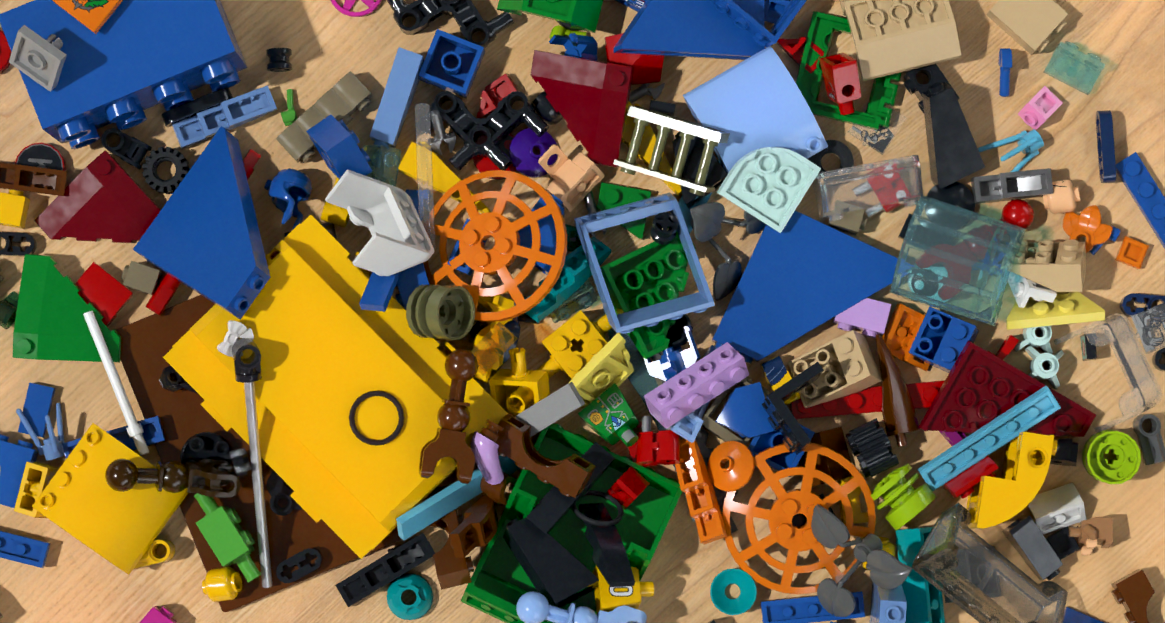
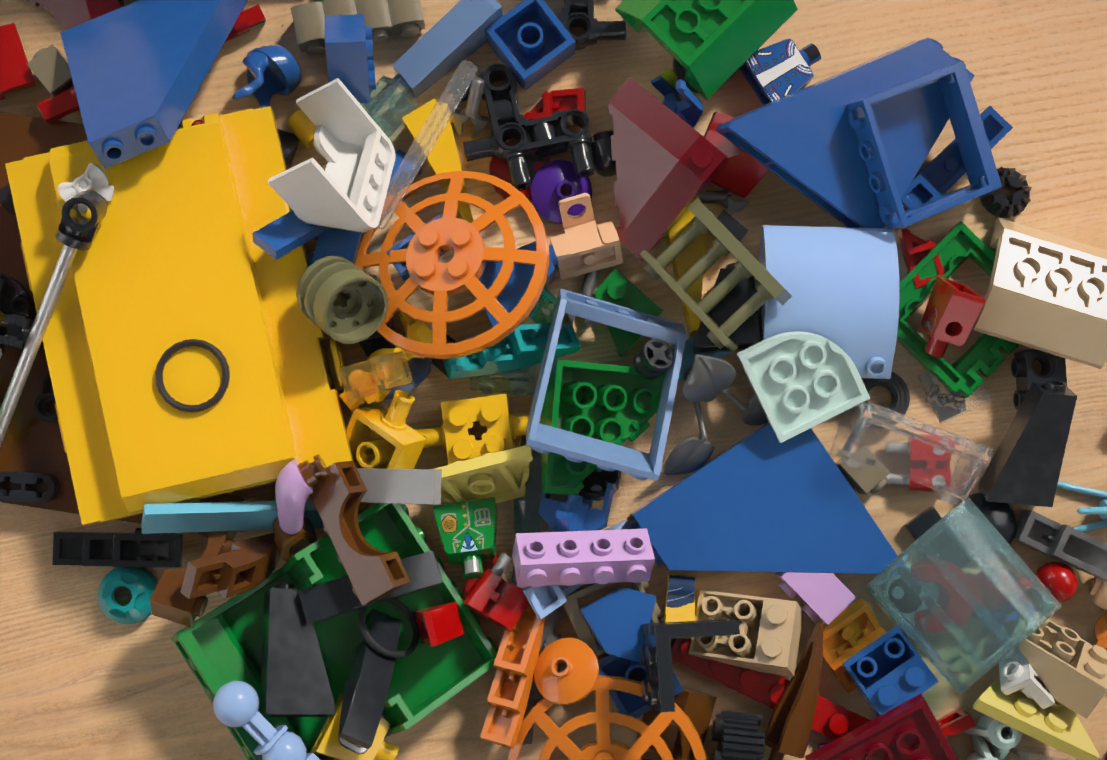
camera: 25 degrees right, 0 degrees up
(453, 418) = (275, 430): reddish brown piece -> none

